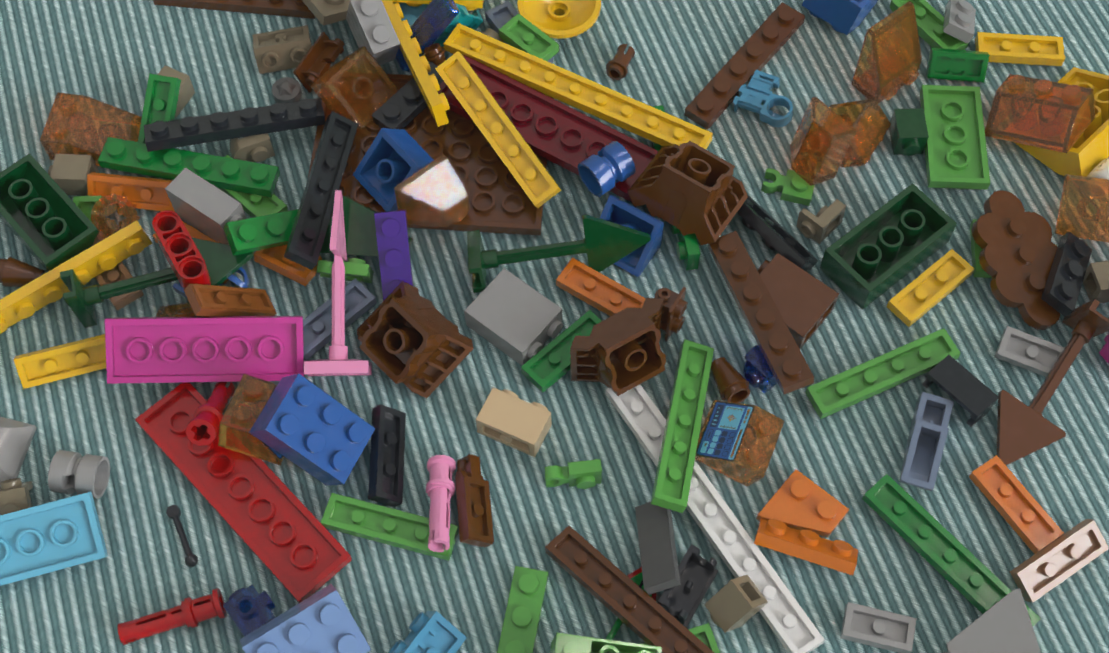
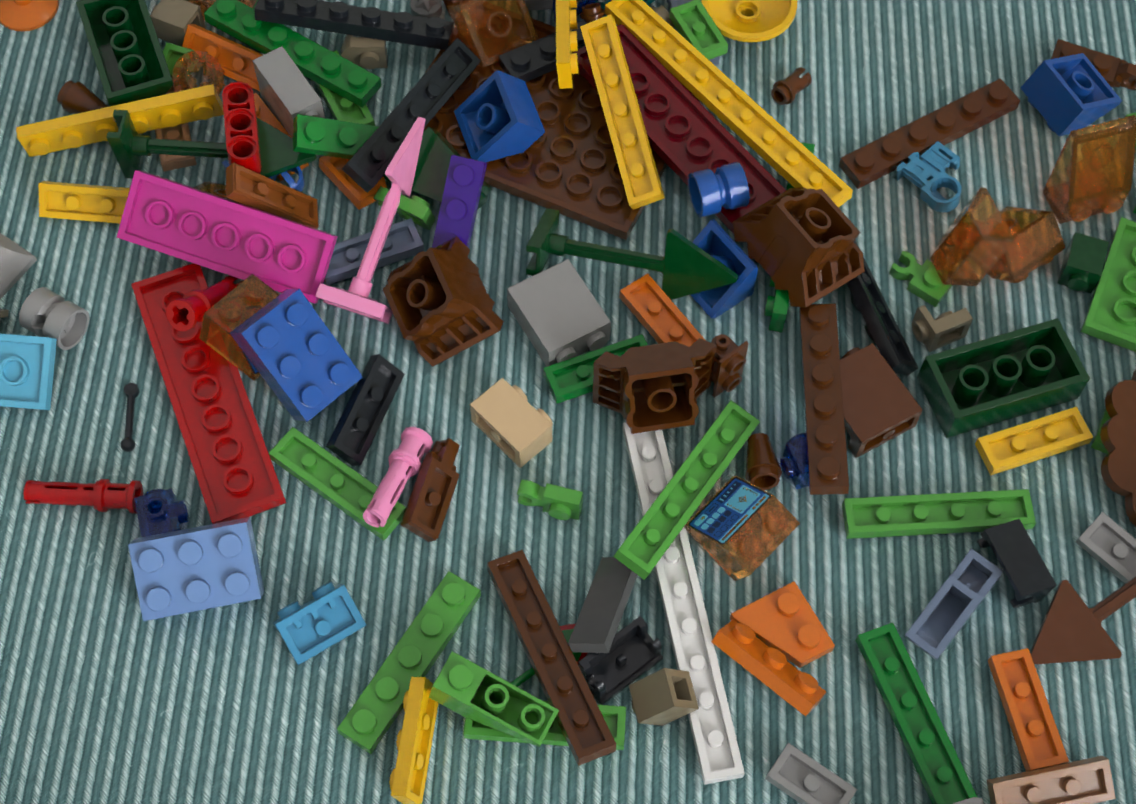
camera: 20 degrees right, 0 degrees up
(433, 195) = (522, 158): slope -> none

